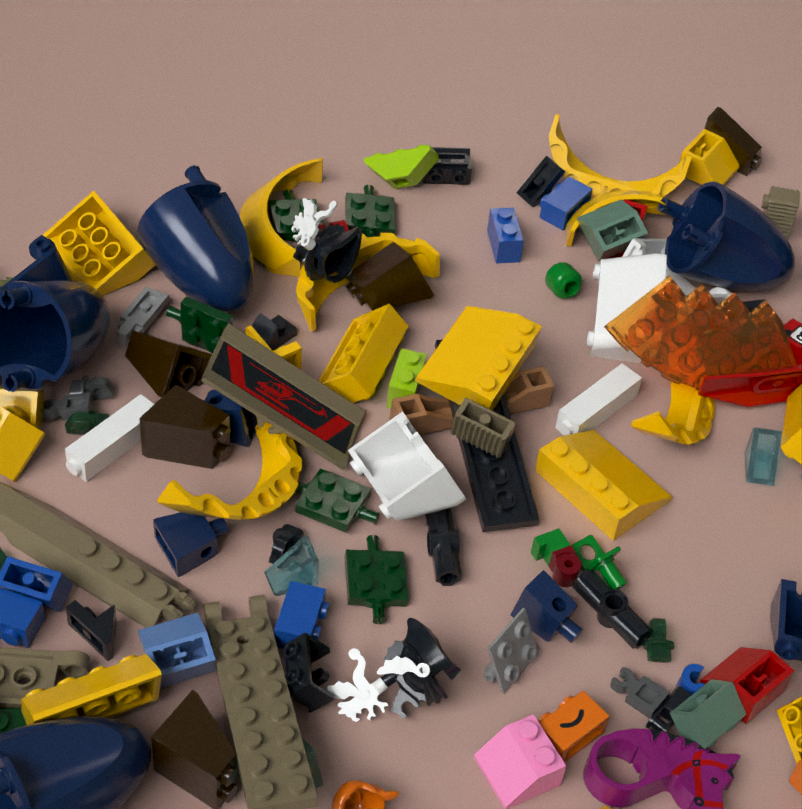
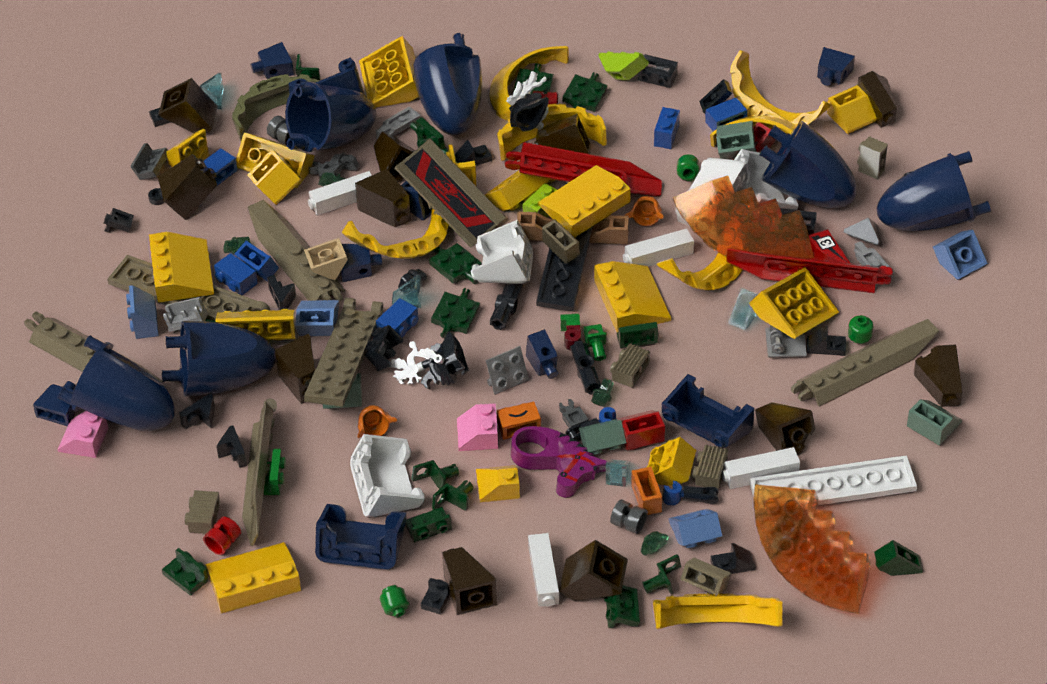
camera: 30 degrees right, 0 degrees up
(147, 548) = (327, 258): none -> tan slope
(424, 314) = (568, 165): none -> red hinge
(555, 349) = (646, 208): none -> orange hair
(648, 114) = (834, 66): none -> dark blue torso
(652, 536) = (638, 334): none -> dark green bracket
(669, 586) = (630, 365): none -> dark tan brick
(760, 764) = (617, 472): none -> clear light blue slope

